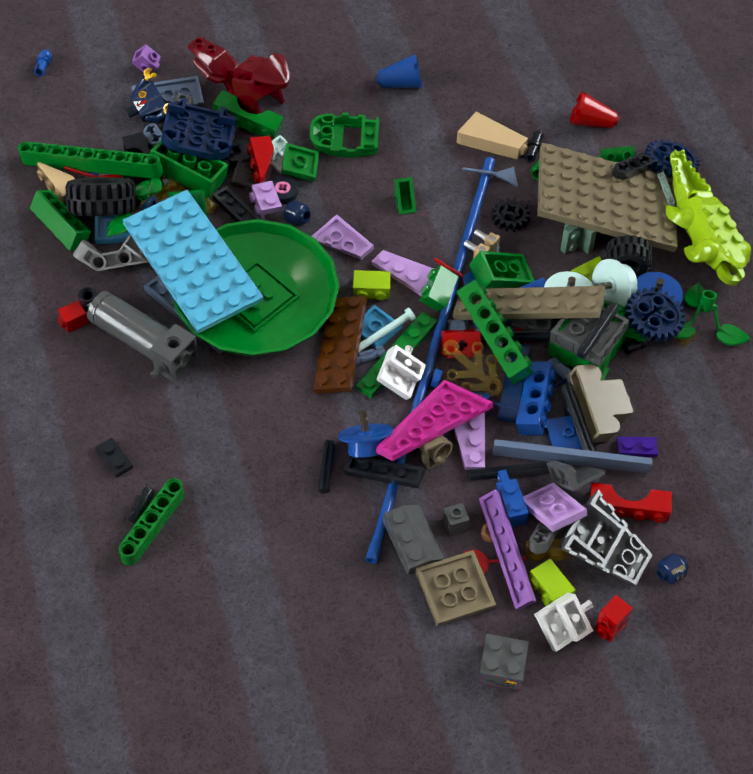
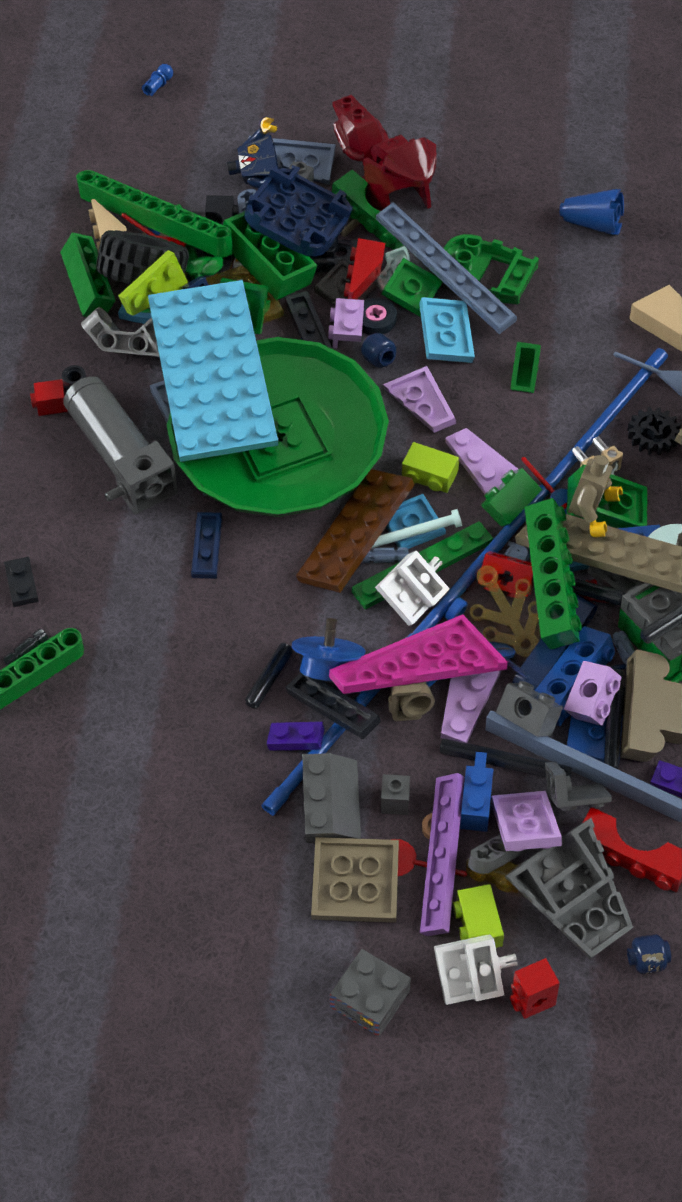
camera: 25 degrees right, 0 degrees up
(124, 206) = (160, 277): none -> lime wing
(146, 58) = (281, 108): medium lavender brick -> none
(238, 388) = (206, 545): none -> dark blue tile
(319, 141) = (446, 268): none -> sand blue tile
(338, 185) = (446, 330): none -> medium azure plate
(367, 502) = (295, 736): none -> dark purple plate
(497, 267) = (590, 490): none -> dark tan torso
(510, 429) = (515, 707): none -> dark grey brick
(553, 396) = (593, 679): none -> lavender brick

